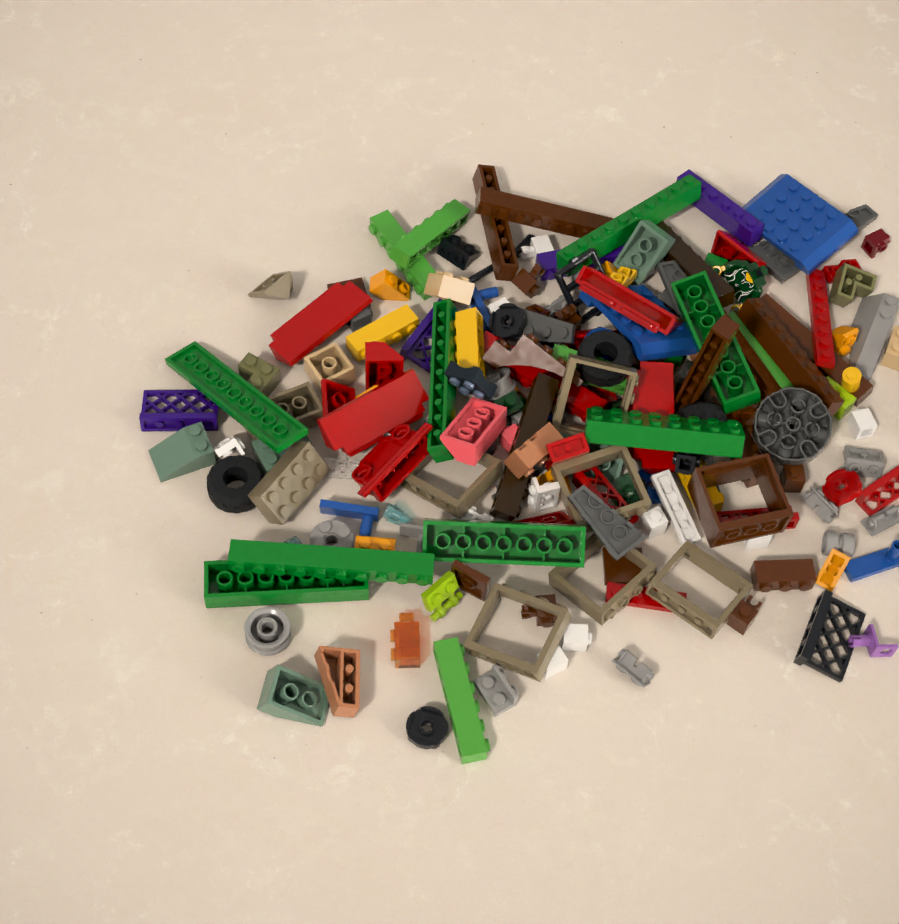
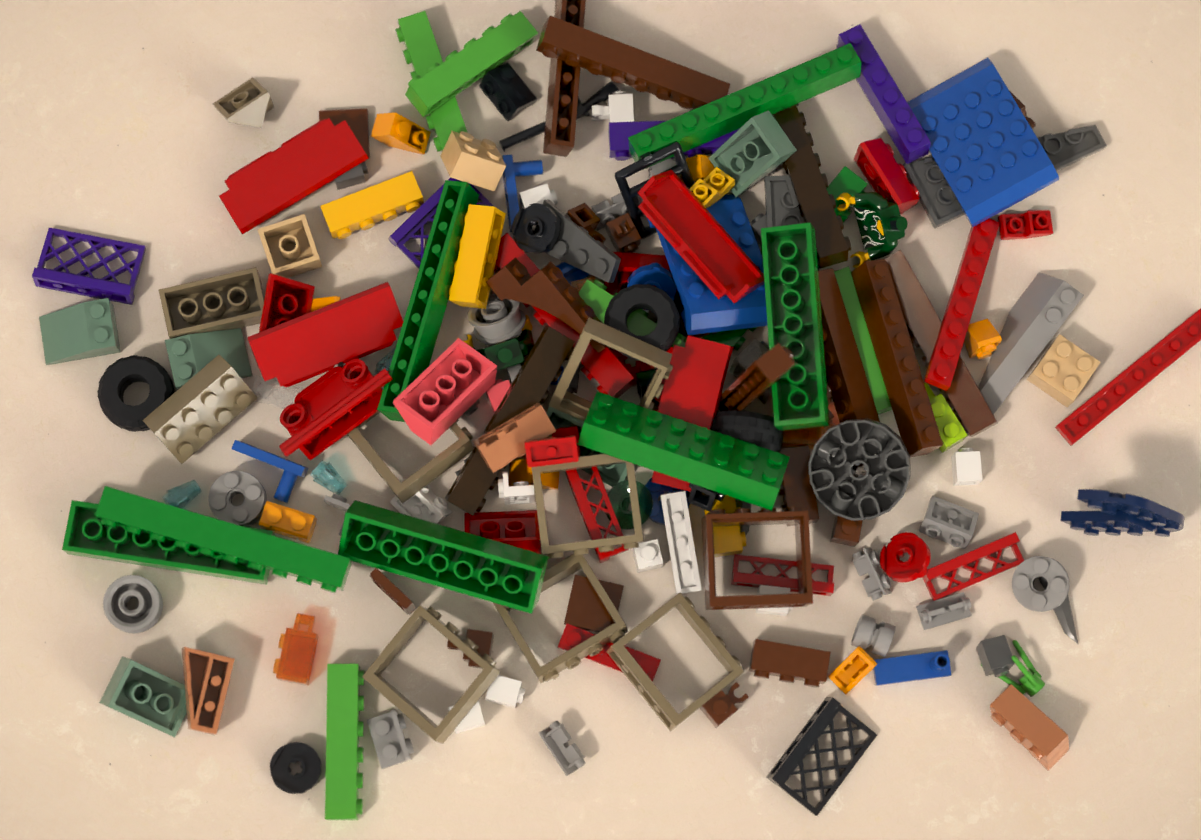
camera: 10 degrees right, 20 degrees up
(225, 447) = (135, 338): white bracket -> none
(237, 397) = (157, 273): green plate -> none
(259, 373) = (202, 242): olive brick -> none
(381, 363) = (350, 266): red slope -> none
(440, 591) = (346, 606): lime plate -> none
(470, 381) = (457, 320): black brick -> none
(528, 282) = (586, 163): reddish brown brick -> none
(609, 527) = (577, 560): dark grey wing -> none
(850, 282) = (1023, 250): olive brick -> none
(851, 379) = (966, 410): yellow brick -> none
(870, 641) = (866, 774): medium lavender bracket -> none
(875, 242) = (1087, 190): dark red brick -> none

